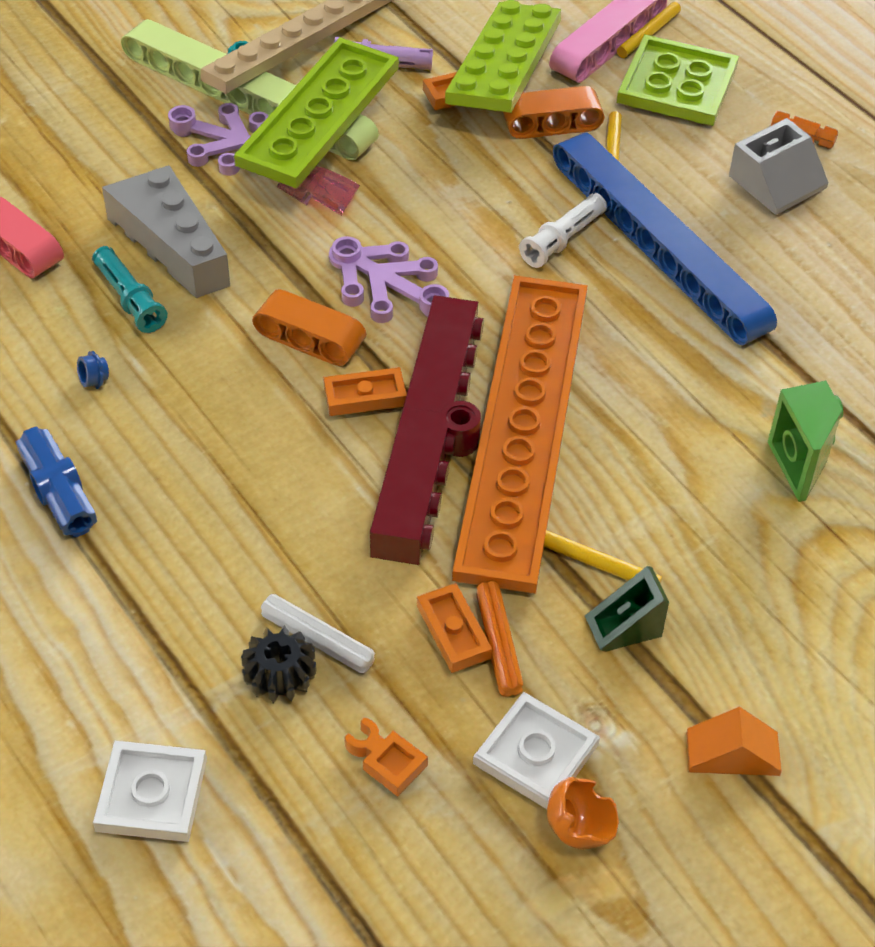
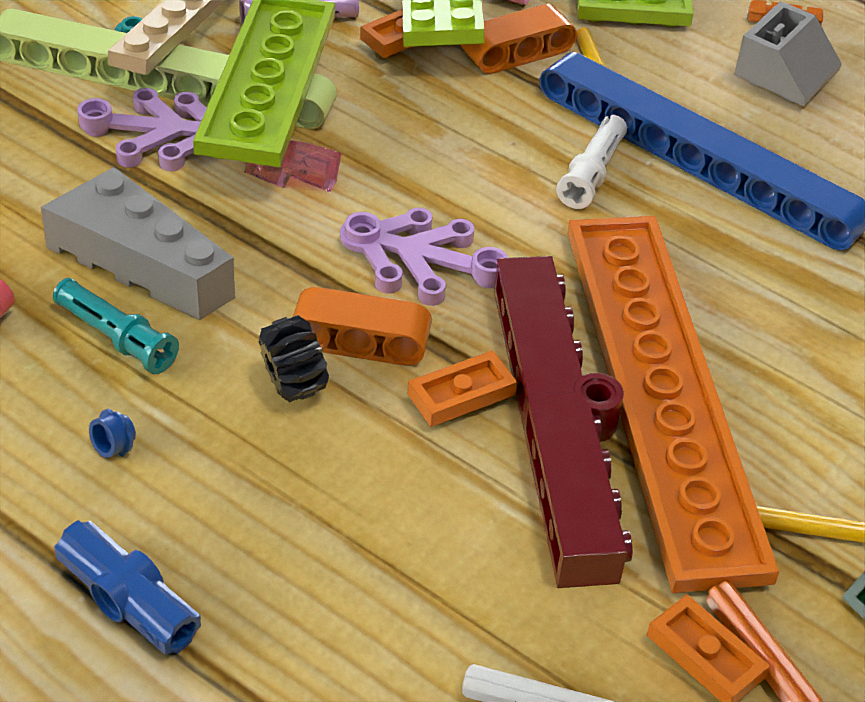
camera: 20 degrees left, 5 degrees down
(241, 341) = (293, 358): none -> black gear

